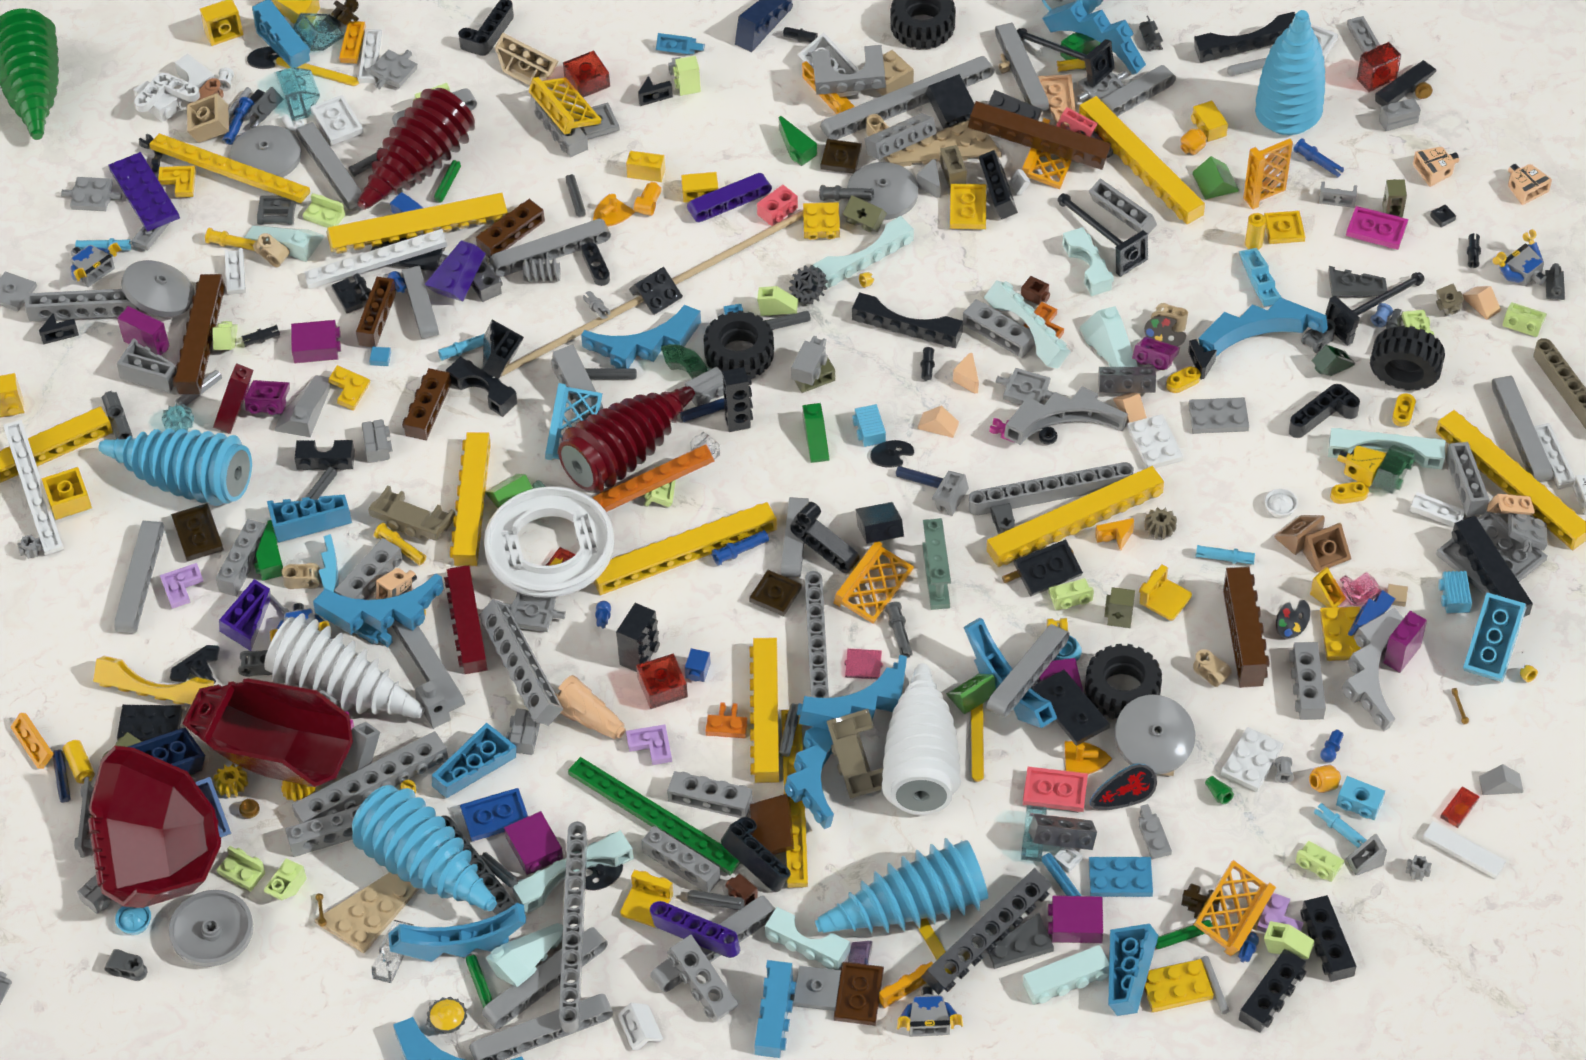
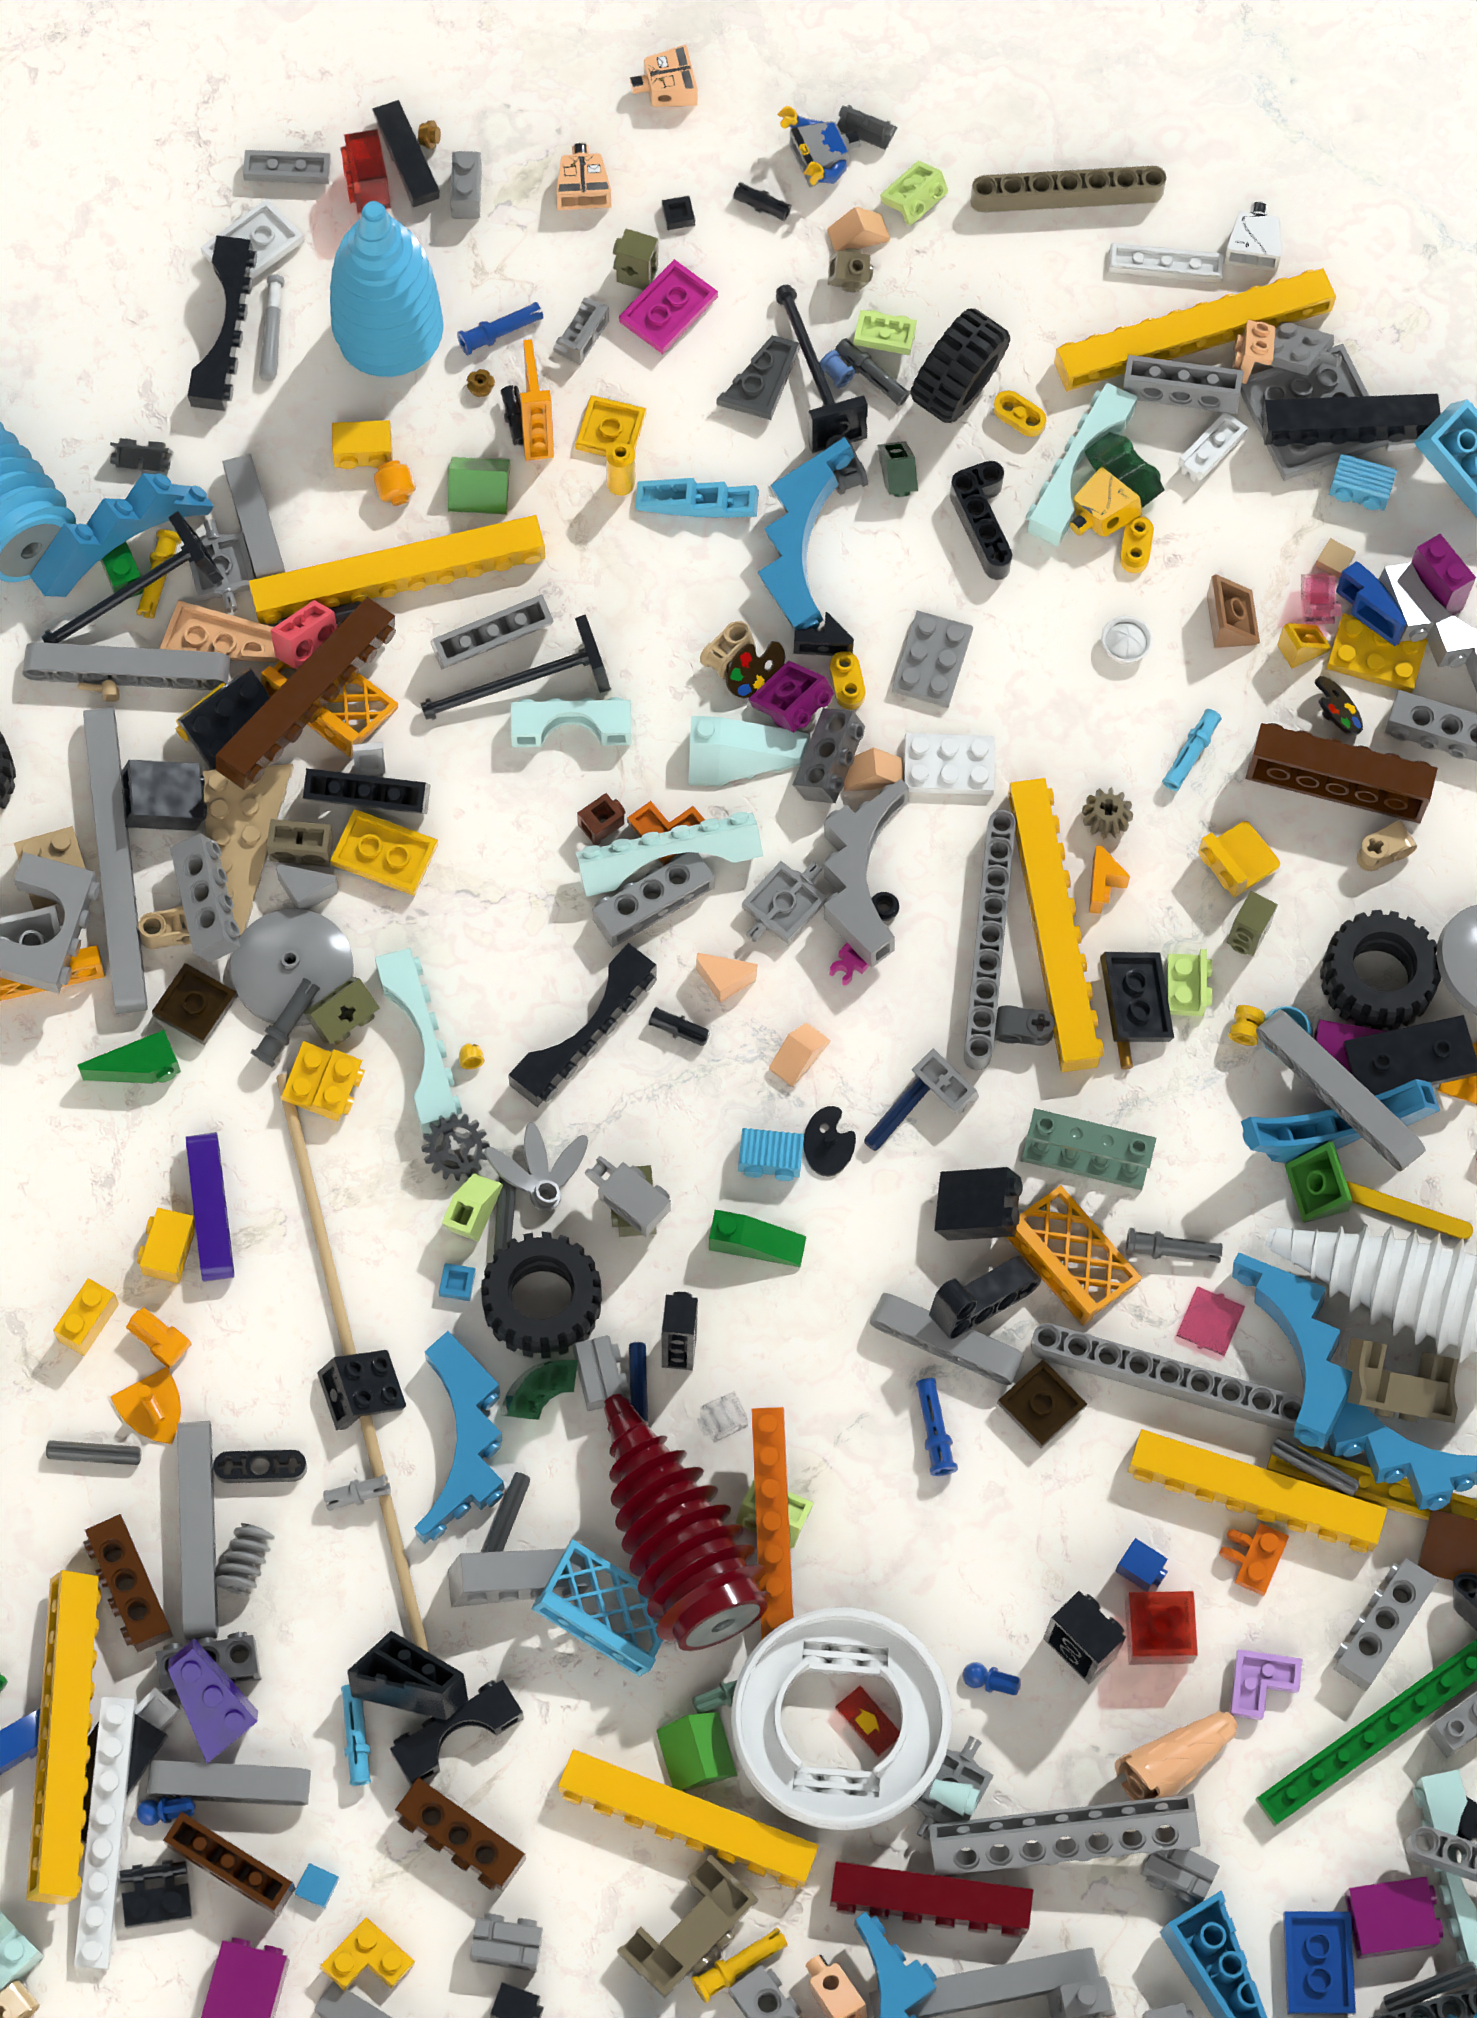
camera: 75 degrees left, 15 degrees up
(525, 609) = (956, 1796): none -> light aqua cone
(684, 547) = (908, 1501): yellow brick -> none
(777, 205) = (257, 1138): coral brick -> none
(819, 325) = (540, 1179): none -> light grey plant
(1294, 533) = (1188, 634): medium nougat slope -> none
(1521, 428) = (1109, 280): light grey beam -> none

